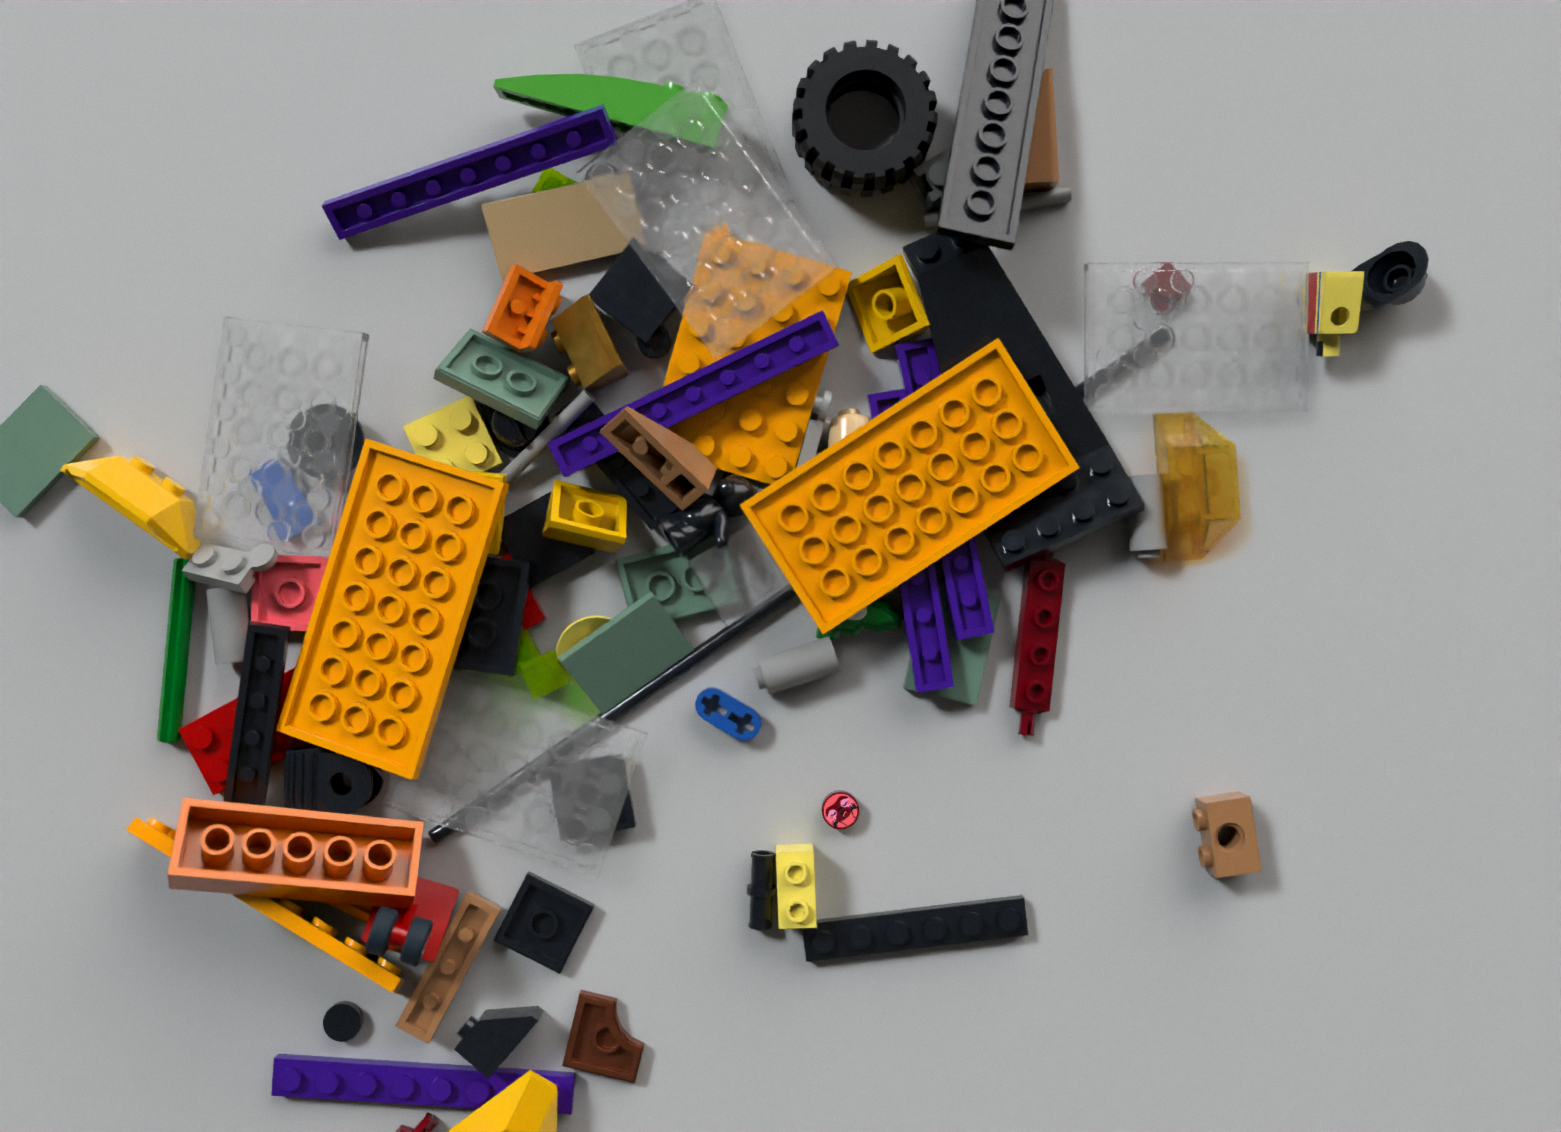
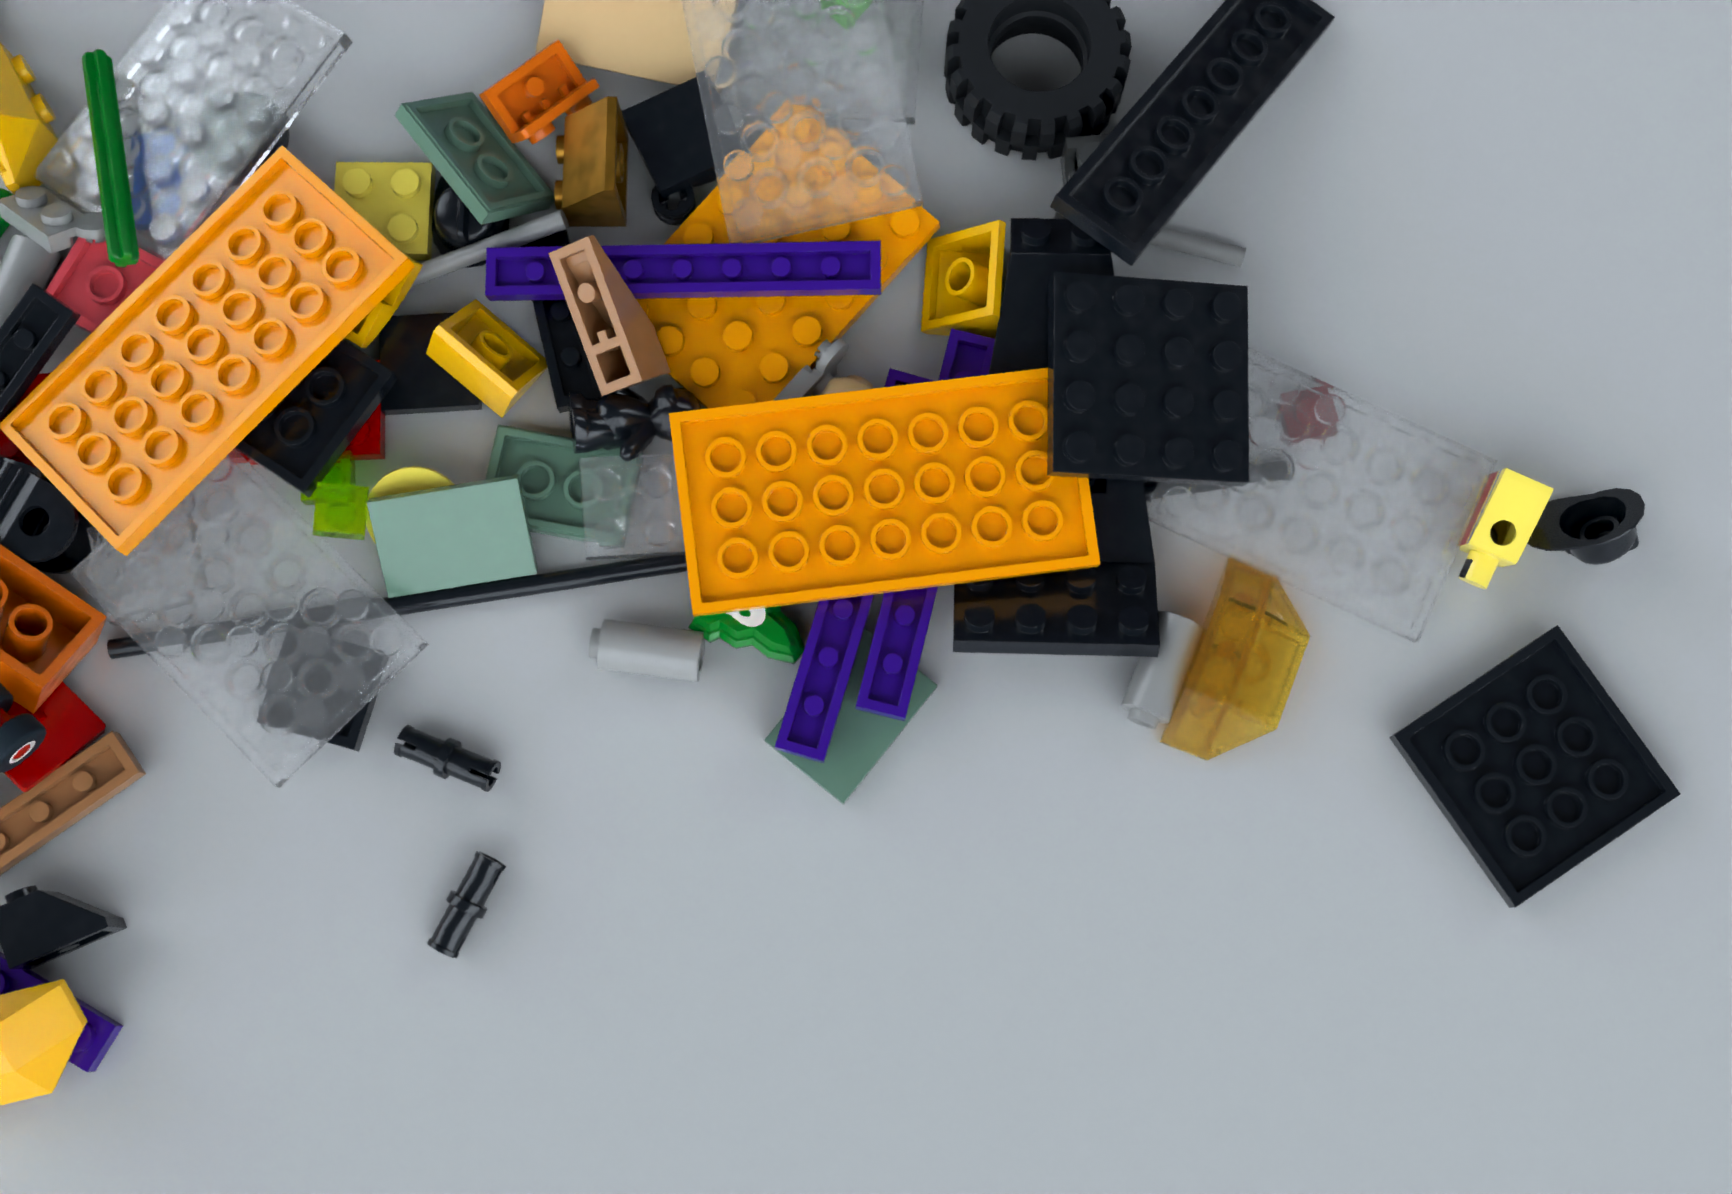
camera: 30 degrees right, 10 degrees down
(246, 504) = (110, 158): none -> green axle
(544, 922) = (185, 817): black tile -> none
(600, 1042) = (173, 1000): copper tile -> none
(699, 801) = (447, 758): none -> black pin
(723, 721) = (528, 677): blue beam -> none
(796, 886) = (509, 918): light yellow brick -> none
(840, 809) = (613, 853): tile -> none
(916, 928) = (631, 1048): black plate -> none
(1037, 639) = (957, 758): dark red plate -> none
(1043, 157) = (1220, 196): medium nougat slope -> none
(1054, 323) = (1147, 380): none -> black plate
(1240, 852) = (1084, 1152): medium nougat brick -> none
(1419, 461) = (1534, 766): none -> black plate

